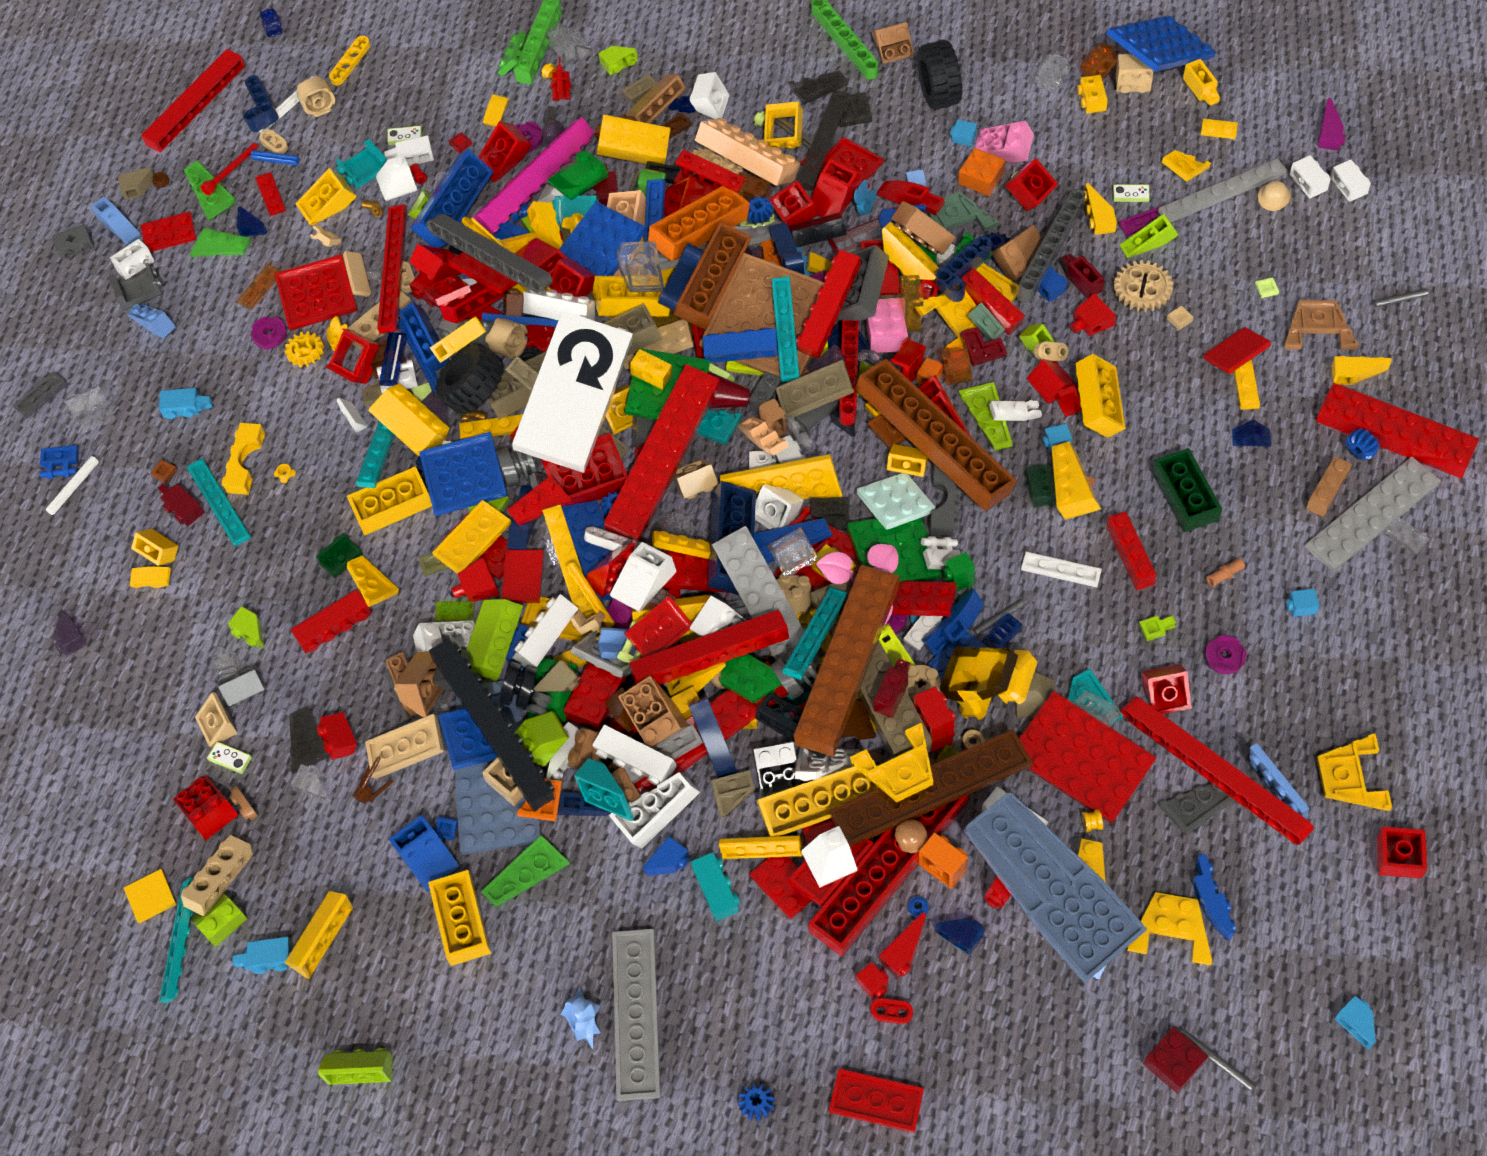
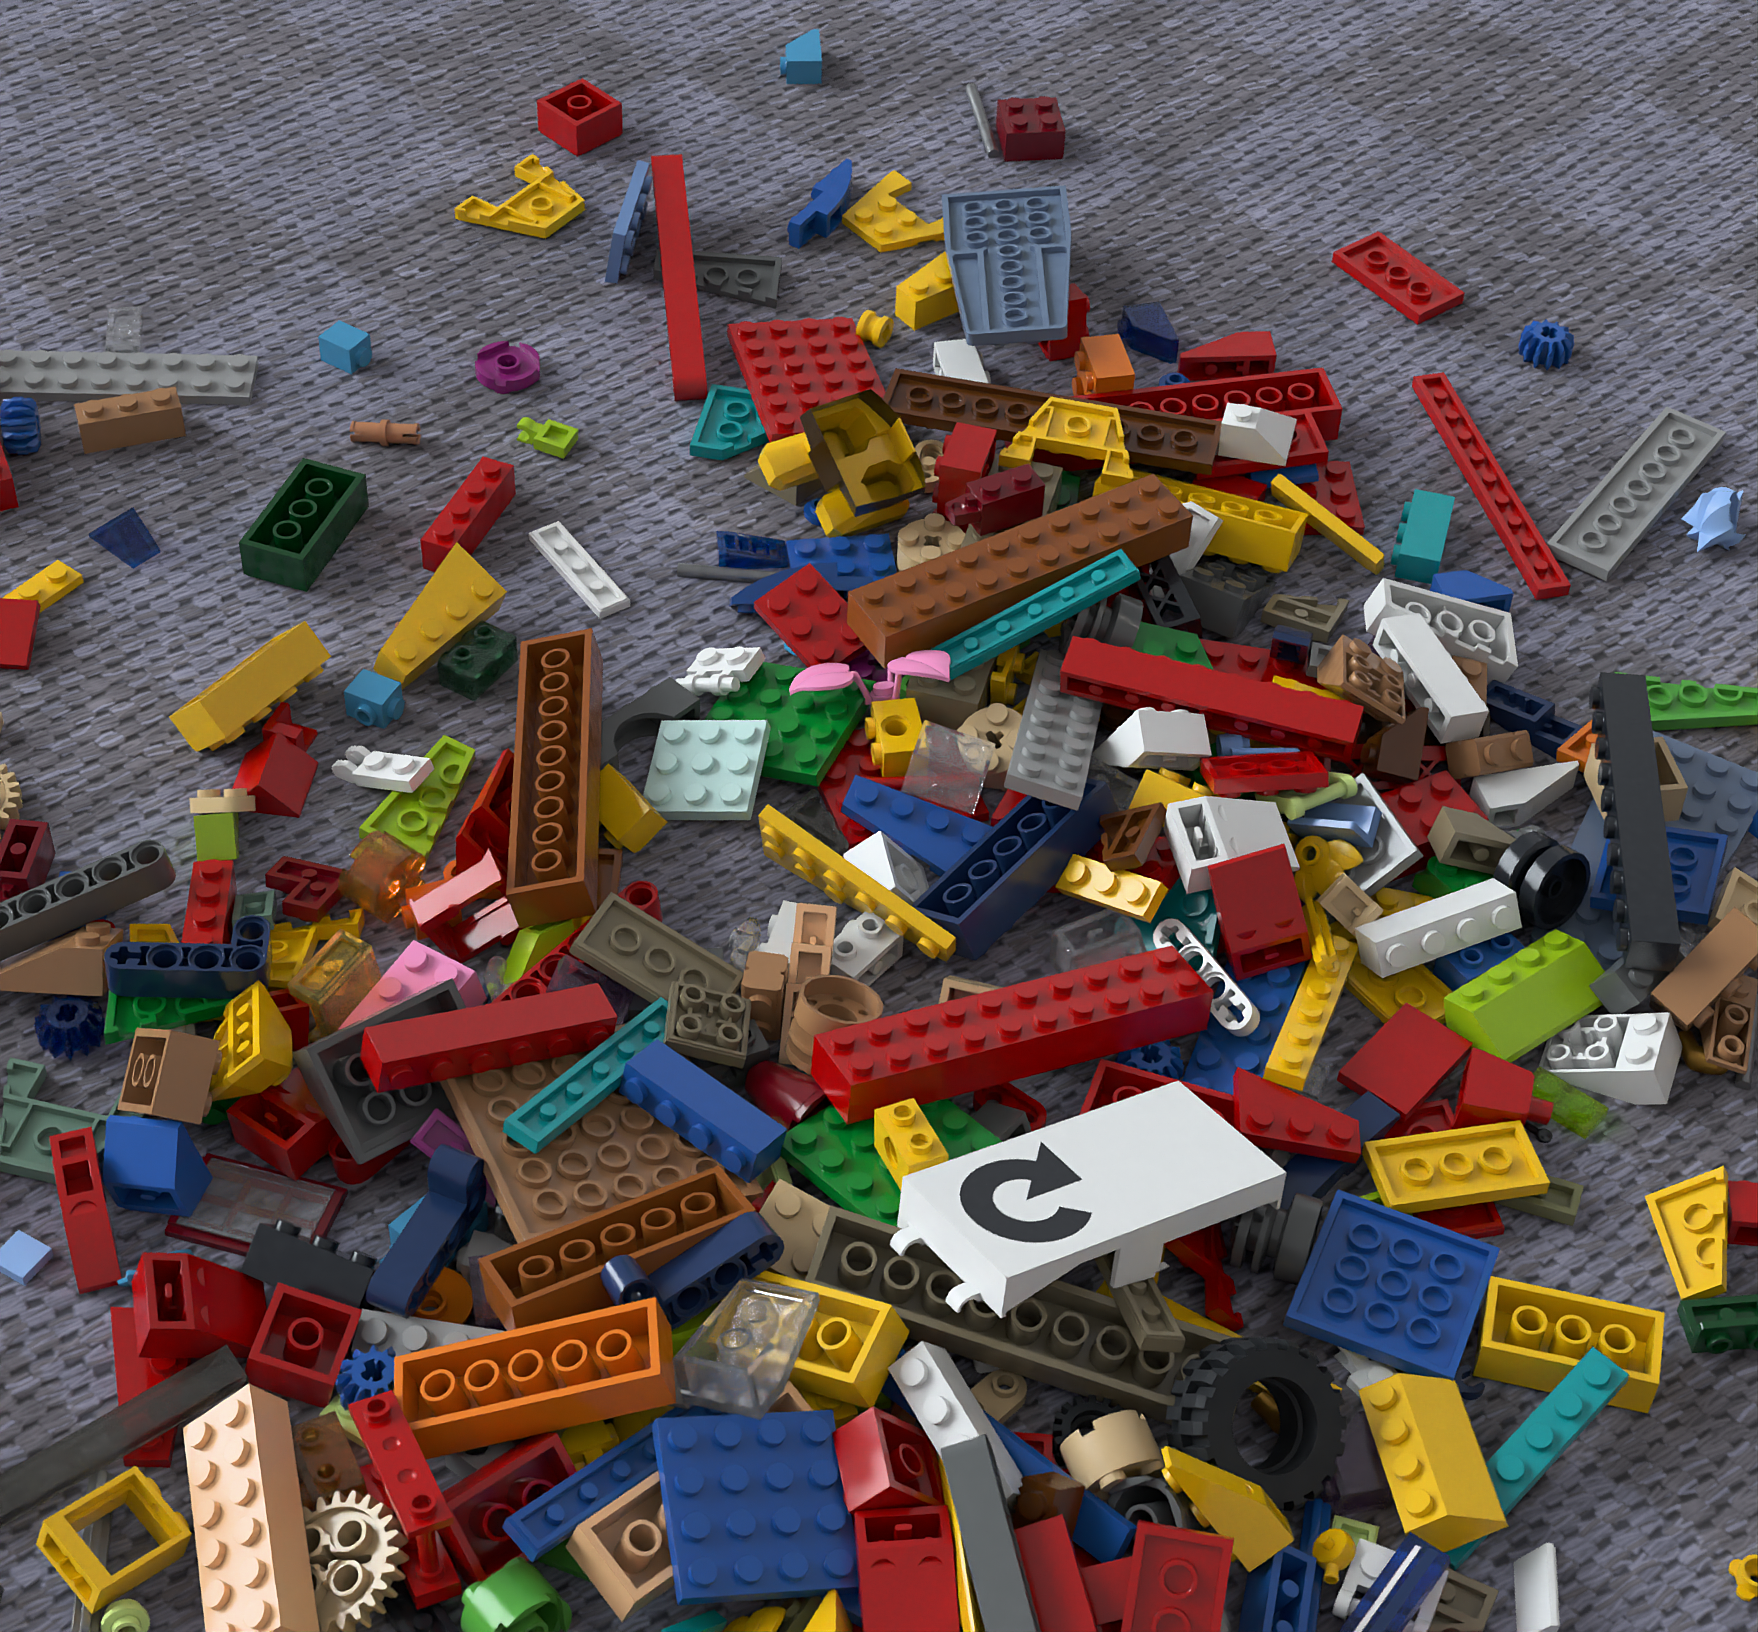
camera: 150 degrees left, 15 degrees down
(422, 374) = (1333, 1553): none -> yellow piece
(542, 736) = (1555, 796): lime slope -> none
(601, 789) = (1514, 663): teal slope -> none
(686, 557) = (1130, 835): none -> reddish brown wing
(714, 959) = (1491, 487): none -> red plate
(726, 400) = (826, 1005): none -> medium nougat wheel
(772, 378) = (707, 1024): none -> dark tan tile
(817, 263) = (394, 1192): yellow slope -> none
(855, 158) = (67, 1382): red tile -> none
(873, 981) = (1301, 351): red brick -> none
(891, 1012) = (1304, 326): red plate -> none
(911, 835) = (1128, 392): medium nougat hair -> none
(960, 570) = (730, 617): green brick -> none
(1092, 316) = (92, 814): red torso -> none
(1107, 716) = (732, 379): clear slope -> none
(1167, 688) = (621, 377): red slope -> none

